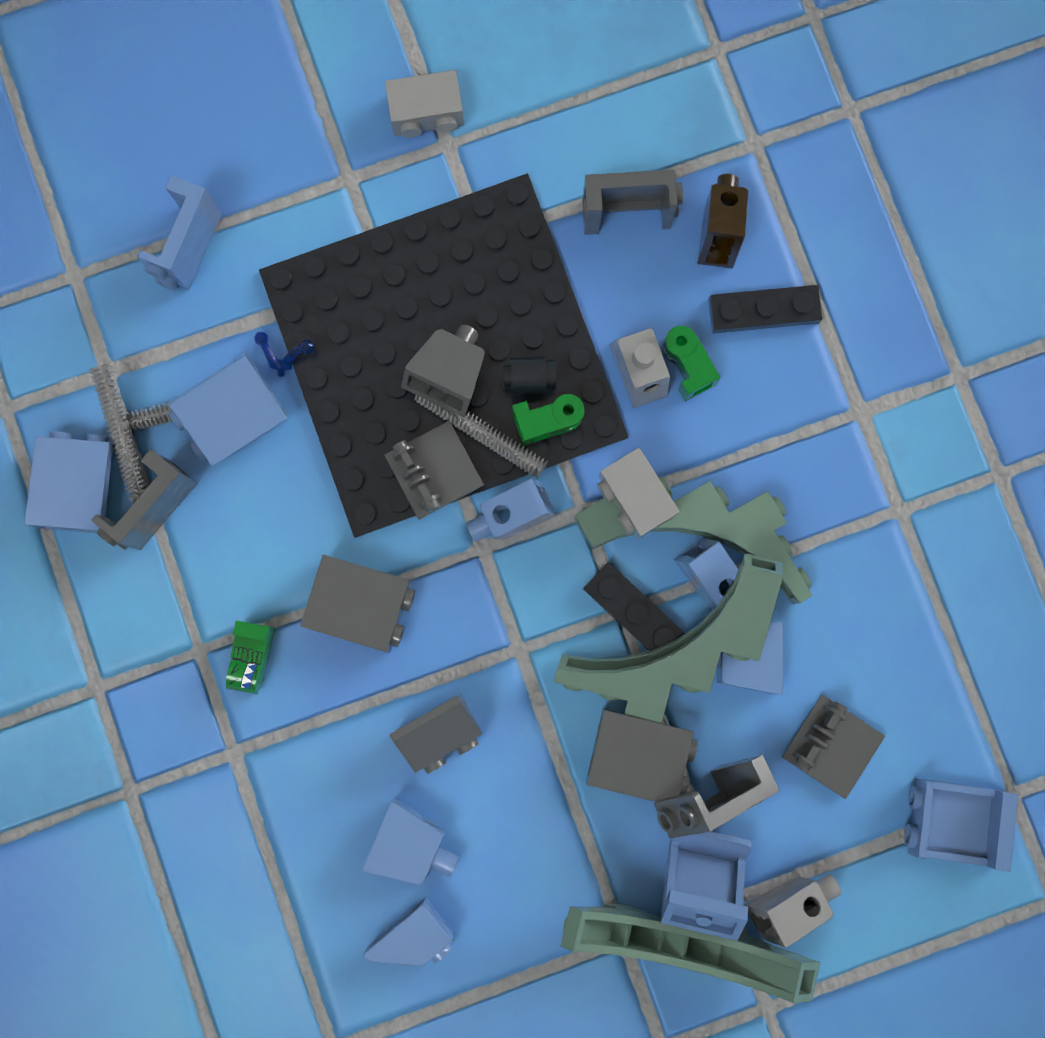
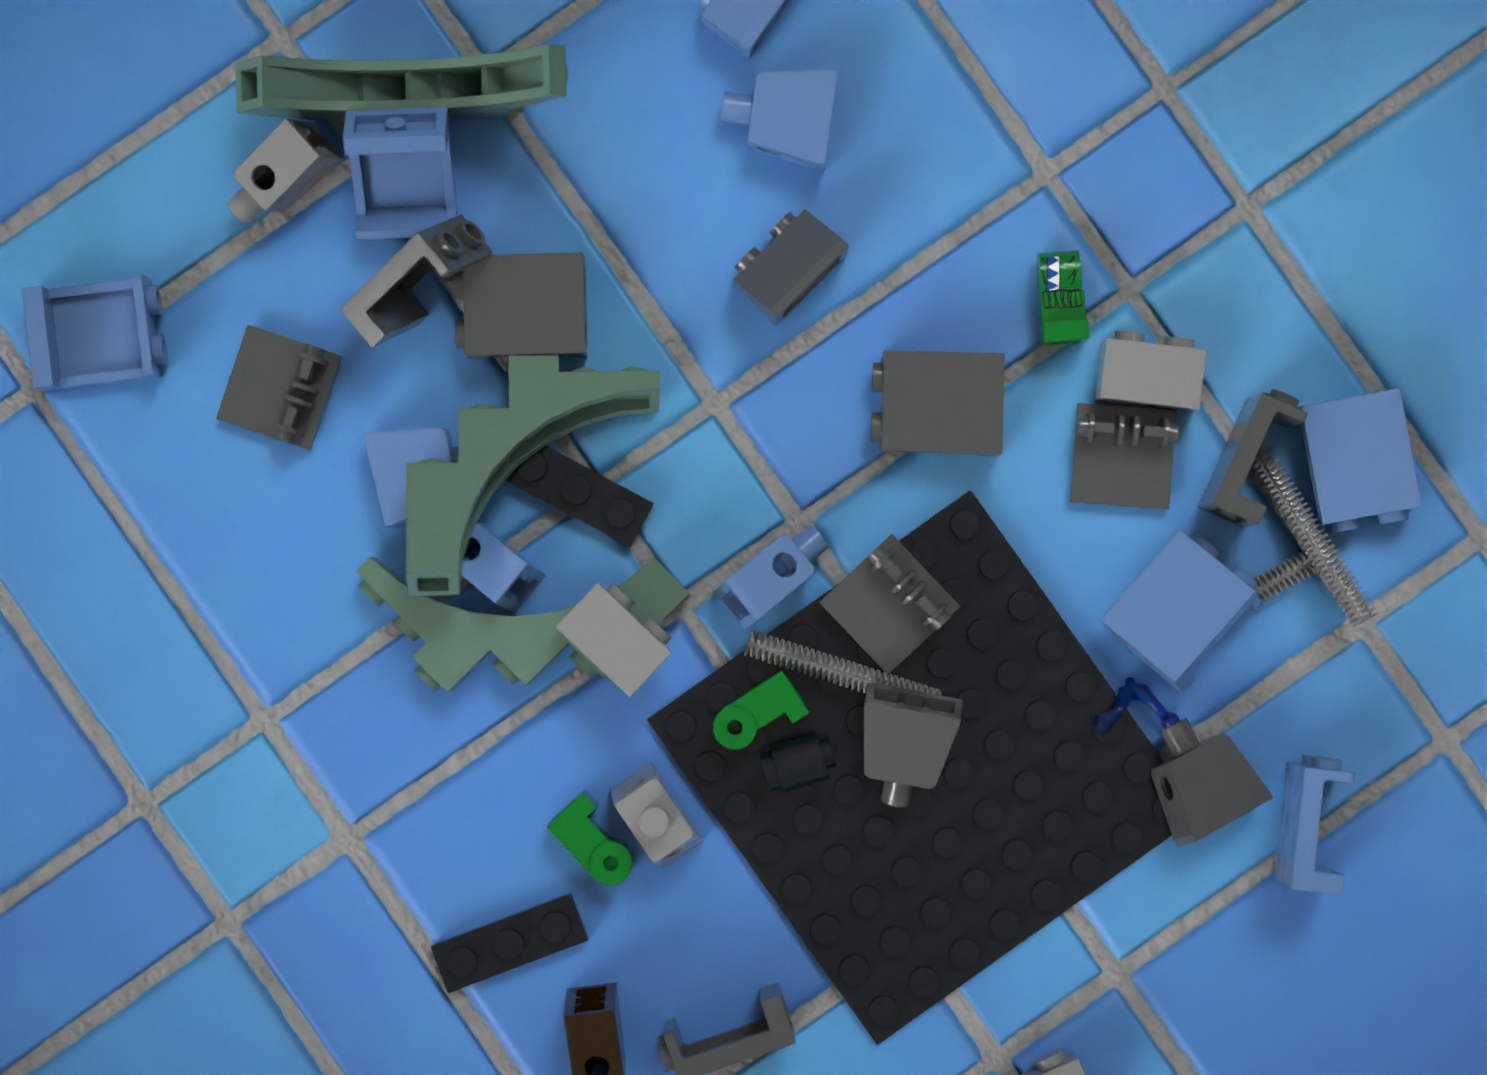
camera: 165 degrees right, 5 degrees up
(200, 584) = (1150, 373): none -> light grey brick
(238, 532) = (1123, 455): none -> dark grey hinge
(248, 285) = (1204, 783): none -> dark grey torso

